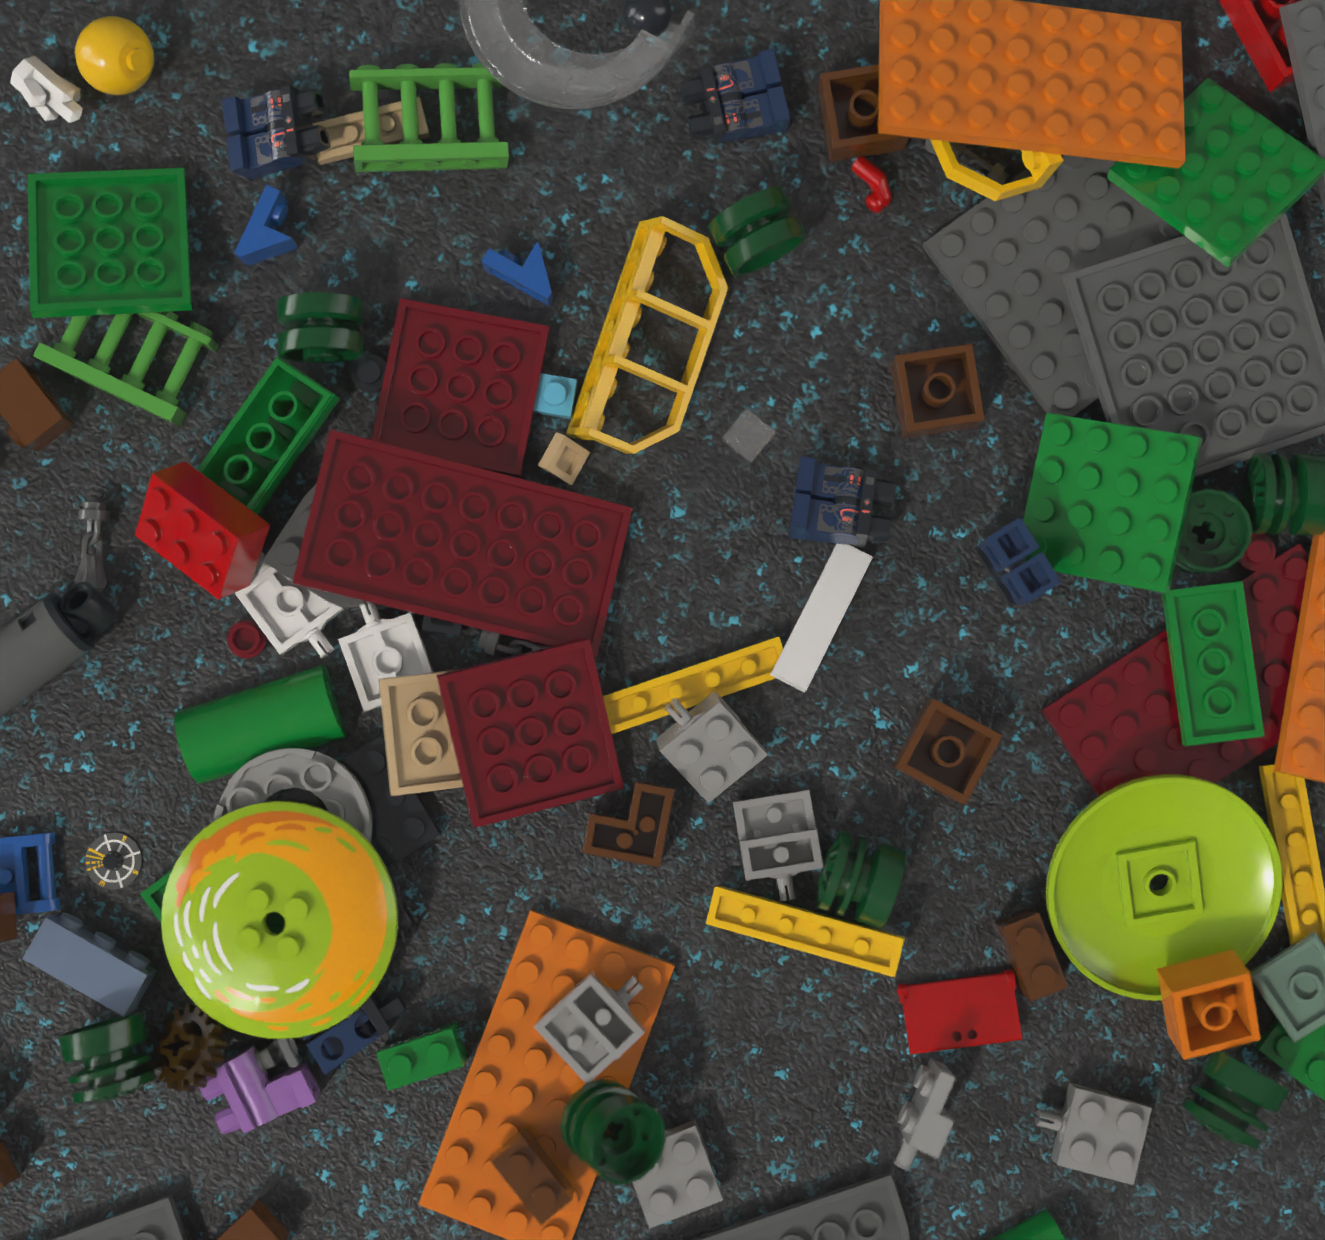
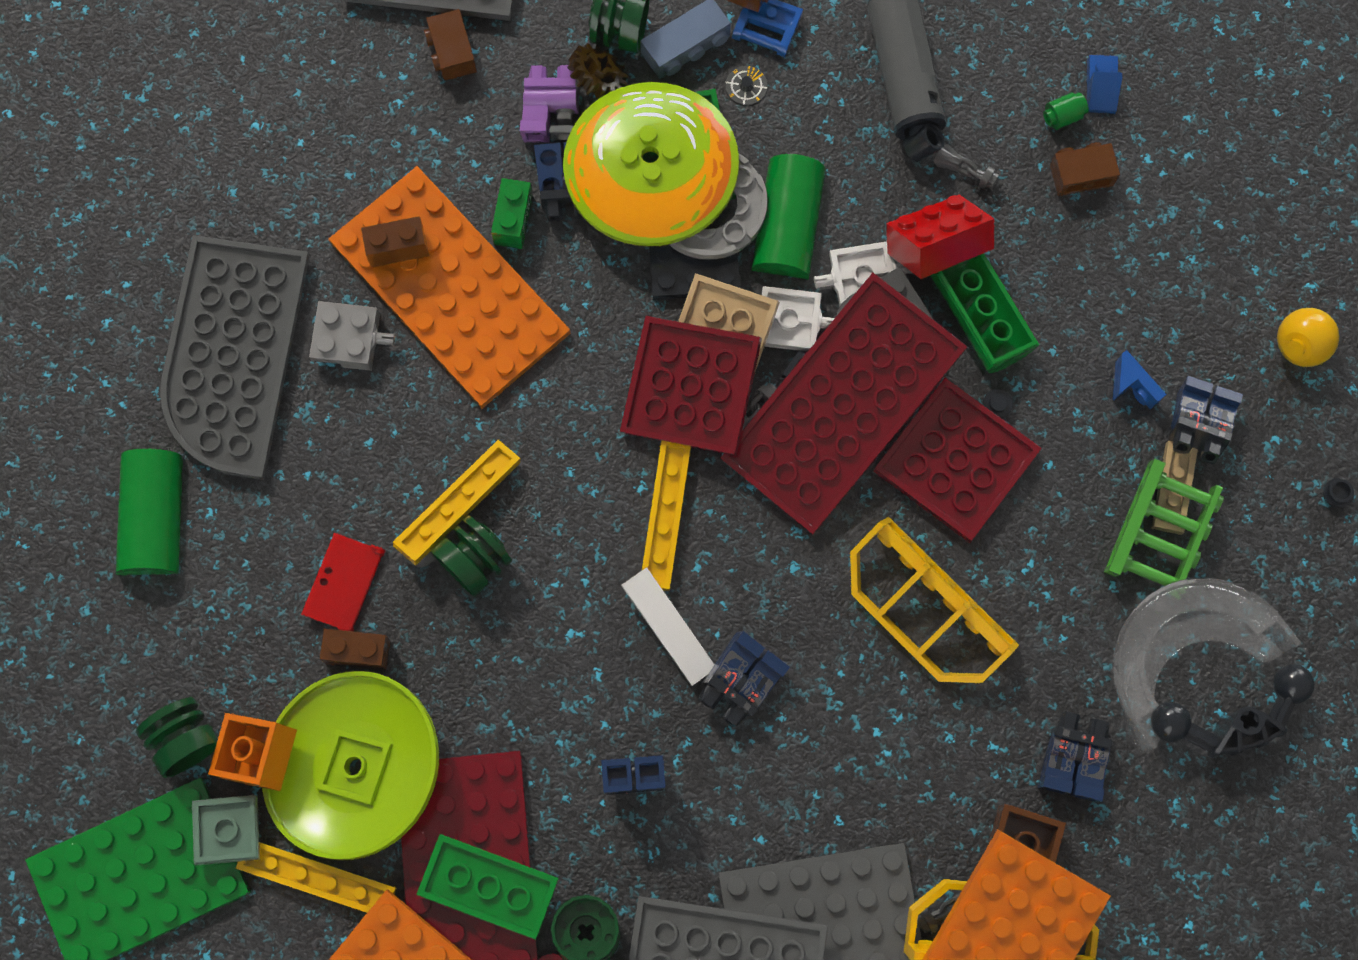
camera: 110 degrees right, 10 degrees down
(46, 90) = (1304, 283): white rock -> none
(108, 242) = (1173, 271): green plate -> none
(131, 385) = (1087, 224): bright green fence -> none
(246, 639) = (851, 235): dark red plate -> none
(320, 327) = (1042, 380): dark green wheel -> none
(529, 278) = (1014, 547): blue slope -> none
(555, 396) = (919, 523): medium azure plate -> none
(563, 458) = (871, 504): tan plate -> none
(592, 1025) = (471, 328): light grey plate -> none
(613, 1131) = (395, 304): dark green wheel -> none
(636, 838) = (582, 423): reddish brown brick -> none
(709, 745) = (618, 502): light grey plate -> none
(748, 435) = (823, 643): clear tile -> none
(757, 231) = (969, 718): dark green wheel -> none
(778, 838) = (529, 517): light grey plate -> none
(877, 181) = (968, 831): red arm -> none
(924, 1119) = (286, 517): light grey plate -> none
(937, 391) = (788, 790): reddish brown brick -> none
(946, 751) = (527, 662): reddish brown brick -> none
(1098, 1133) = (208, 633): light grey plate -> none
(1111, 500) = (644, 870): green plate -> none

